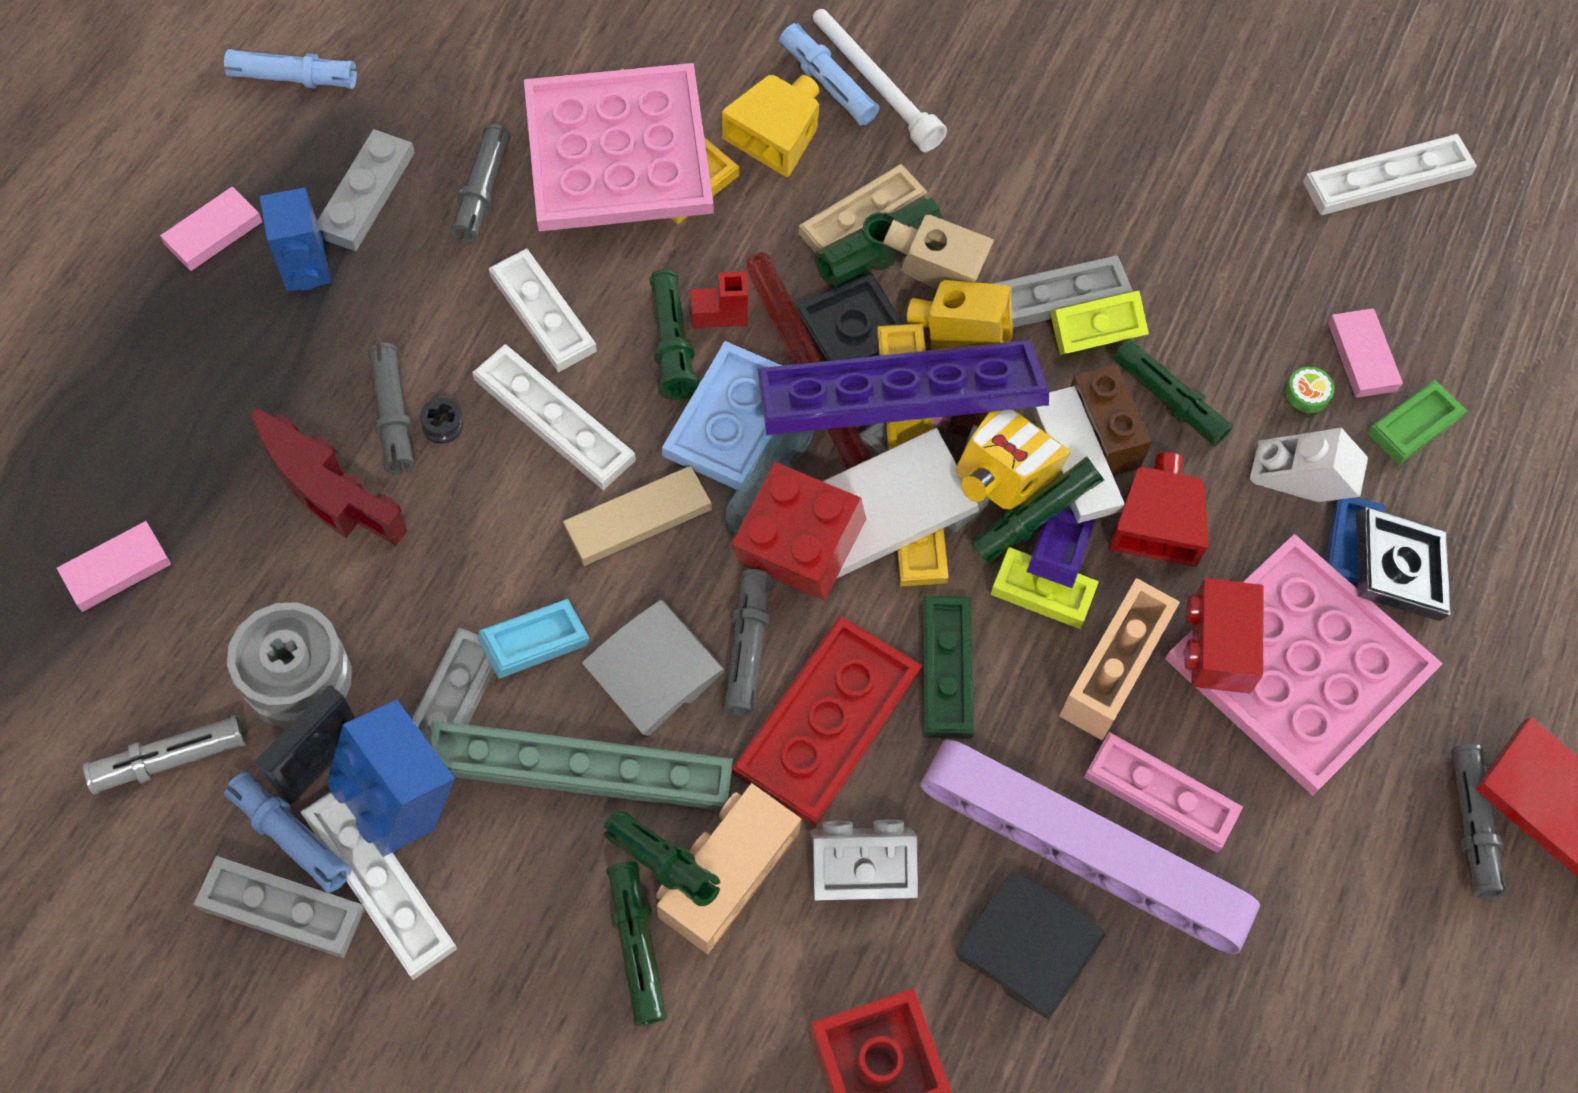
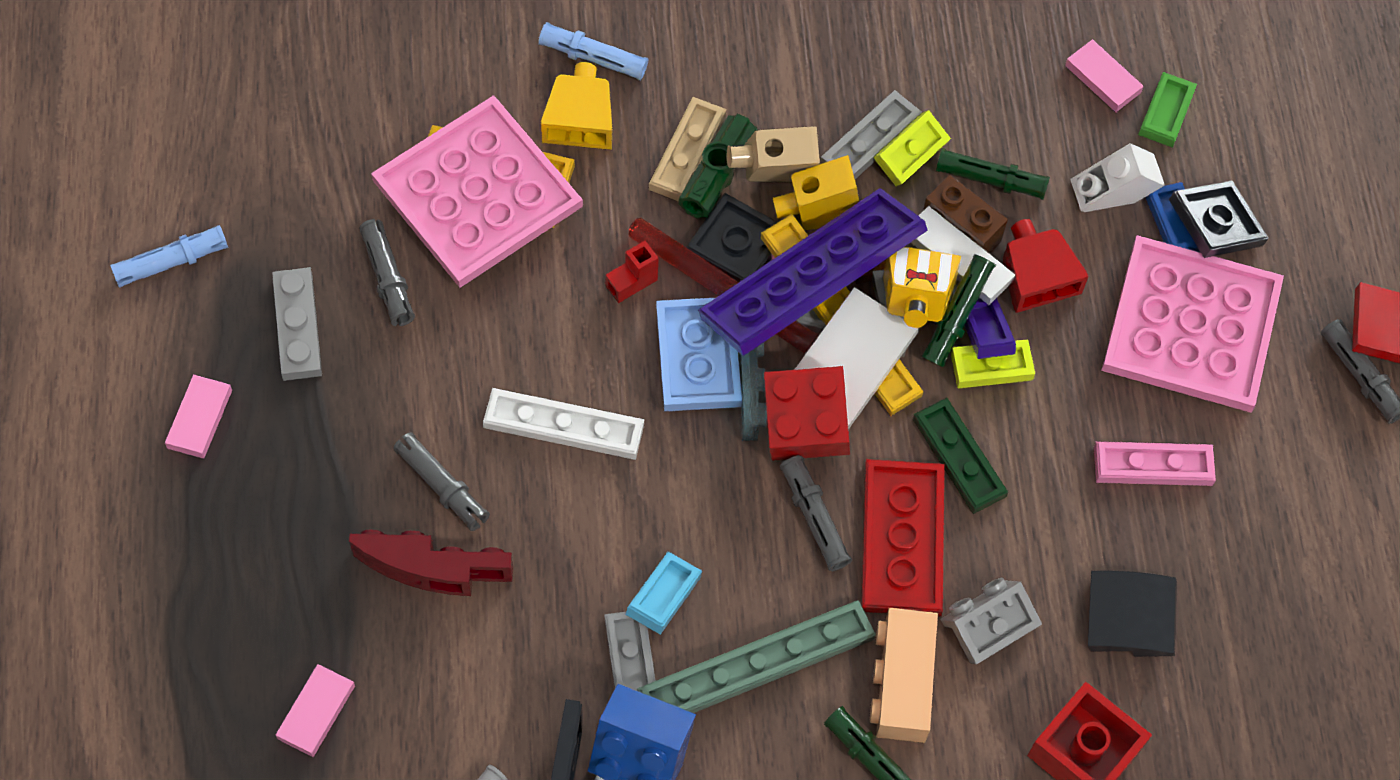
camera: 30 degrees left, 0 degrees up
(286, 660) = (528, 702): light grey wheel -> none
(295, 239) = (286, 390): blue brick -> none
(449, 430) = (476, 481): black bush -> none
(542, 310) = (499, 347): white tile -> none
(637, 515) = (675, 464): tan tile -> none
(653, 667) = (761, 566): light grey slope -> none
(672, 865) = (875, 692): dark green pin -> none
(673, 350) = (621, 327): dark green pin -> none
(924, 129) = (691, 59): white piece -> none
(1091, 846) = (1129, 526): lavender beam -> none
(1119, 659) = (1076, 387): light nougat brick -> none
(1226, 635) = (1138, 332): red brick -> none
(1309, 390) = (1083, 123): tile -> none

